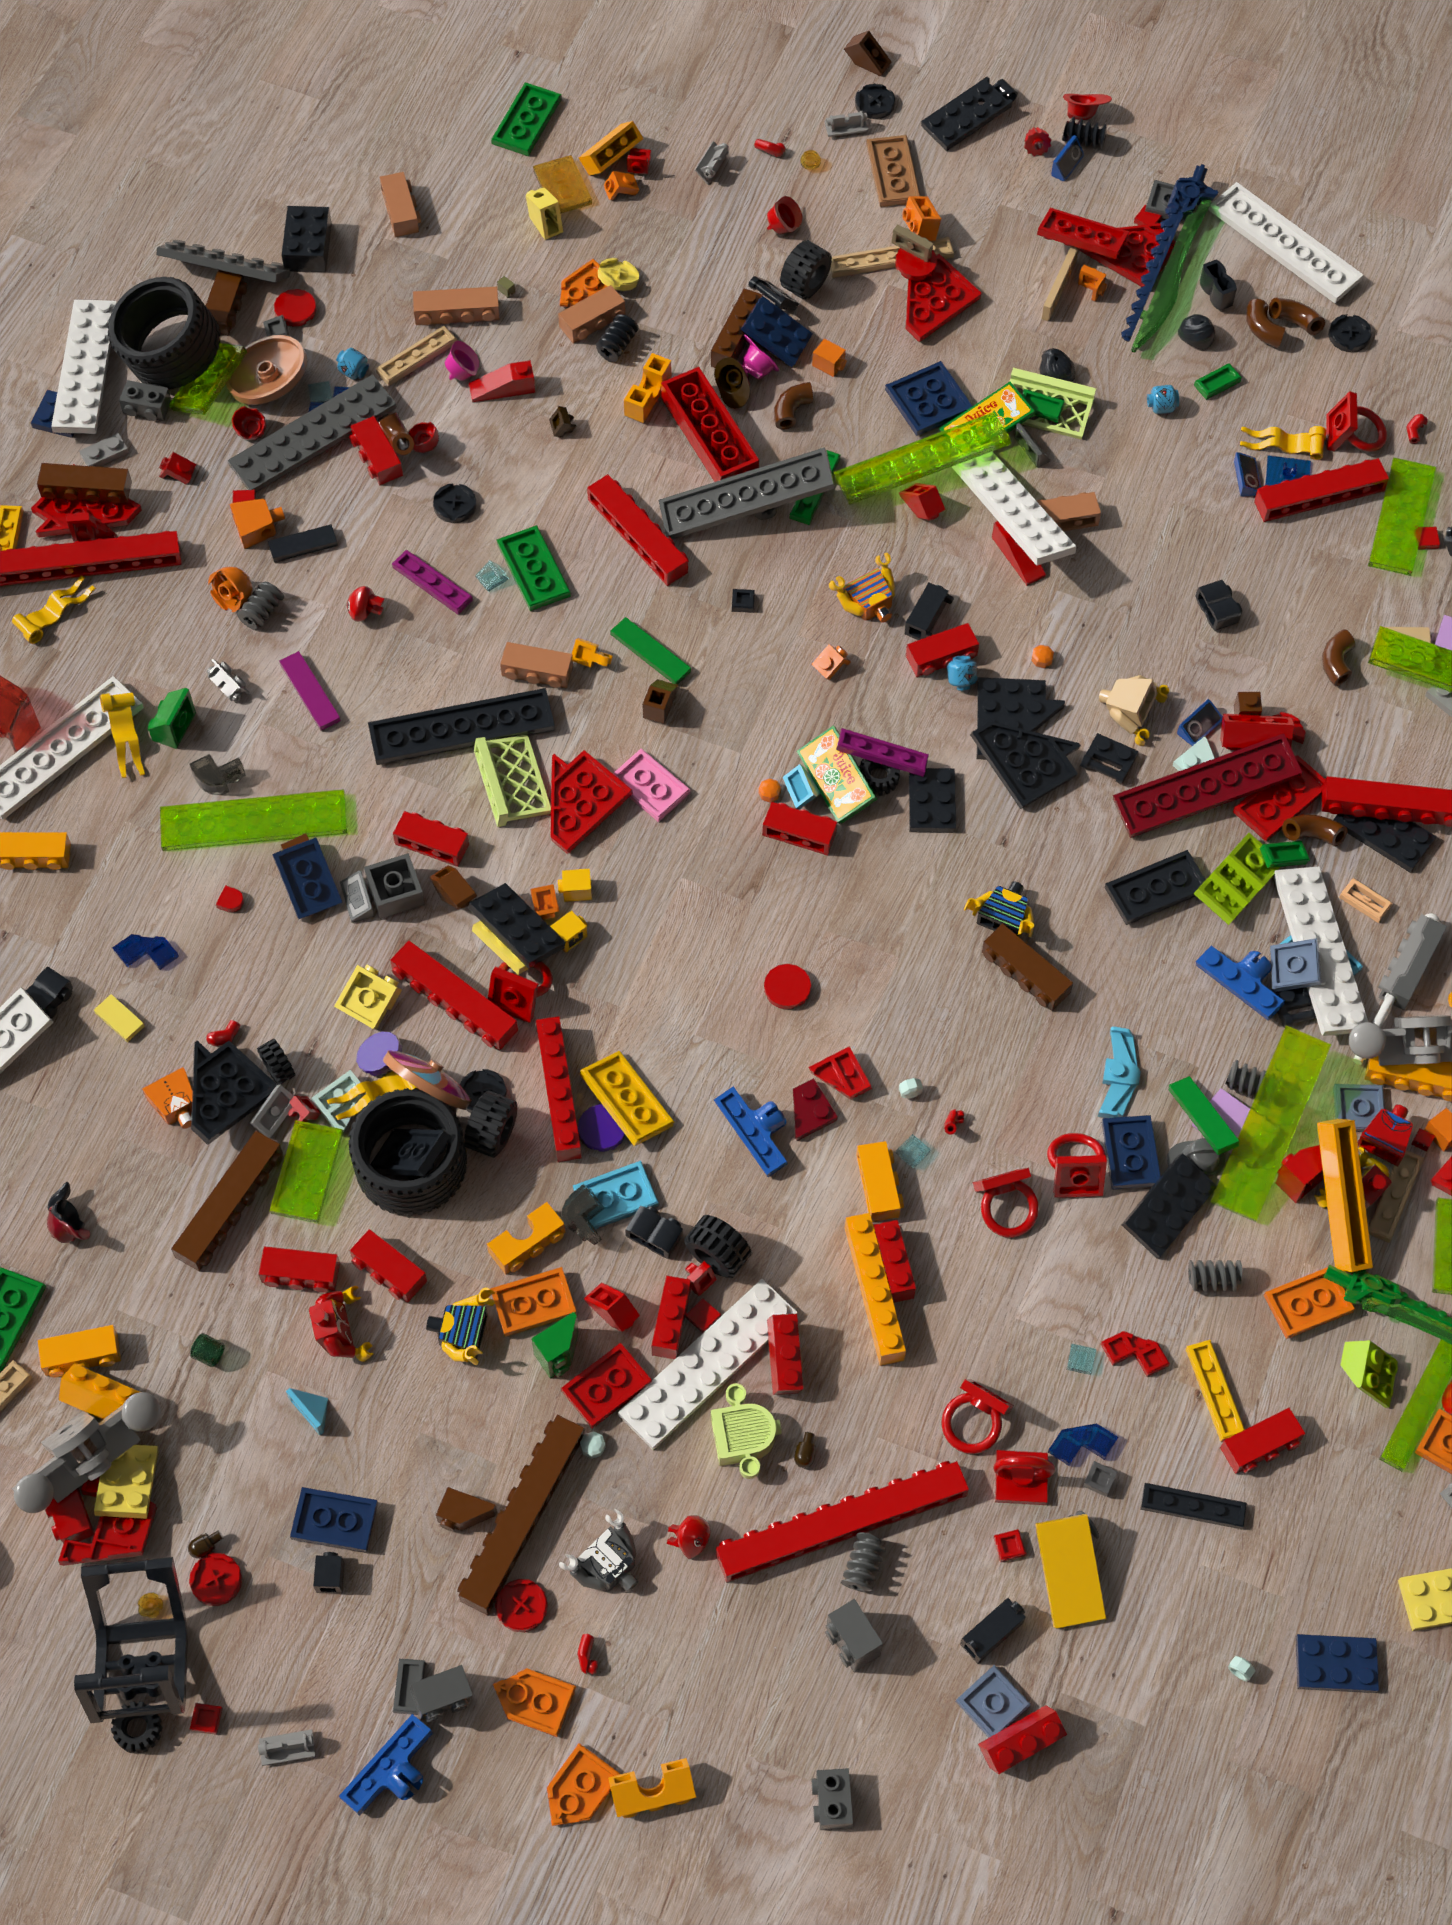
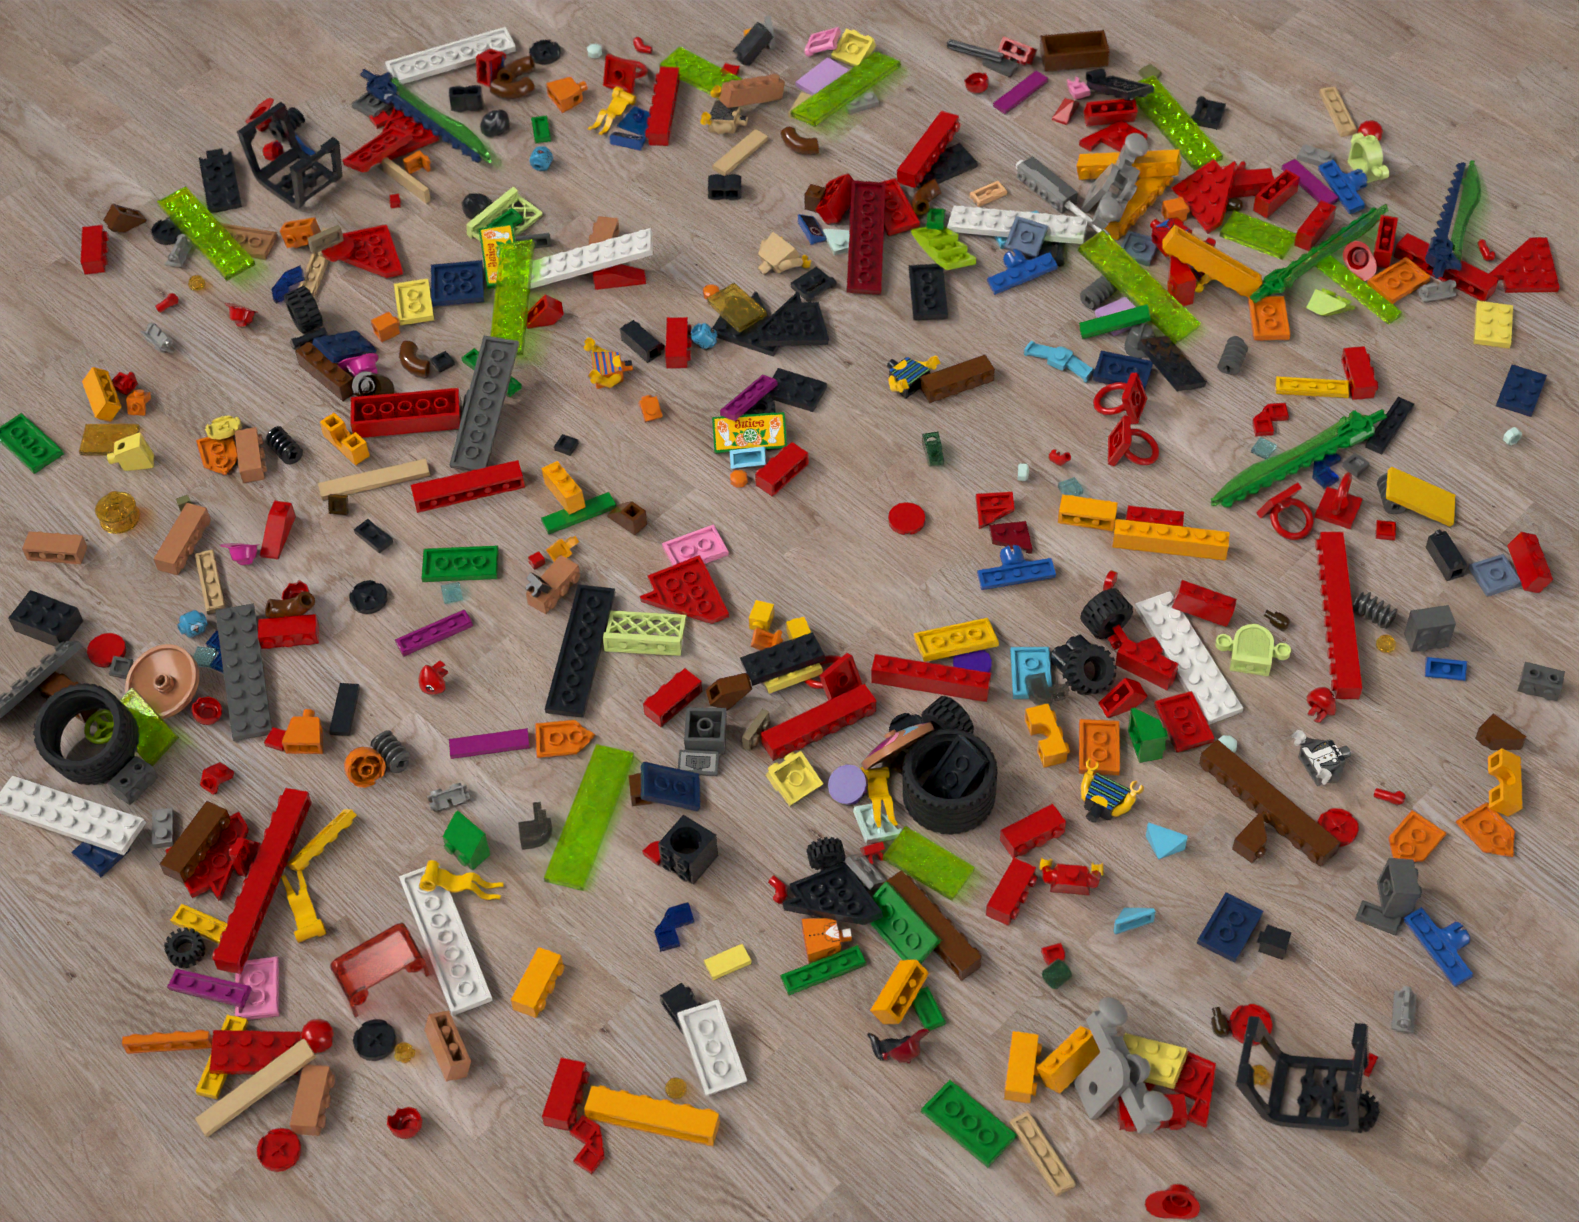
camera: 65 degrees left, 10 degrees down
(125, 1233) = (928, 1010): none -> green tile
(128, 589) = (316, 845): none -> yellow plate
(128, 1196) = (899, 992): none -> light orange brick
(140, 1114) = (823, 970): none -> green tile
(211, 1170) = (903, 926): none -> green tile
(233, 943) = (688, 834): none -> black brick
(237, 1342) = (1053, 952): none -> red tile
(340, 754) = (561, 738): none -> orange tile
(421, 936) = (753, 734): none -> dark tan plate
(425, 1413) = (1165, 841): none -> medium azure slope
(465, 235) = (117, 512): none -> clear yellow wheel
(516, 647) = (537, 583): none -> black tile
(533, 472) = (373, 536): none -> black plate
(567, 637) = (536, 560): none -> red piece
(610, 1260) = (1075, 669): none -> black tyre
(613, 440) = (374, 479): none -> tan tile
(670, 619) = (563, 487): none -> light orange brick
(727, 1762) = (1499, 734): none -> reddish brown slope
(784, 1239) = (1110, 580): none -> red tile
(809, 433) = (442, 361): none -> black tile
(810, 48) = (94, 249): none -> red brick
(813, 1675) = (1445, 668): none -> blue slope
(820, 1591) = (1385, 643): none -> clear yellow plate
(857, 240) = (288, 279): none -> clear blue tile
(879, 134) = (206, 233): none -> clear neon green plate
(879, 367) = (413, 302): none -> light yellow plate
(901, 978) = (933, 449): none -> clear green leg
(1022, 689) = (736, 307): none -> clear yellow tile
(1024, 180) = (297, 178): none -> black windscreen
(1026, 287) = (395, 201): none -> red piece
(1137, 1445) = (1350, 432): none -> piece
(1286, 283) = (488, 65): none -> red torso
(1287, 381) = (566, 93): none -> orange torso
(1290, 601) = (740, 152): none -> tan tile
(1336, 559) = (721, 118): none -> torso
(1379, 382) = (594, 51): none -> light aqua tile
(1388, 571) = (752, 90): none -> nougat brick

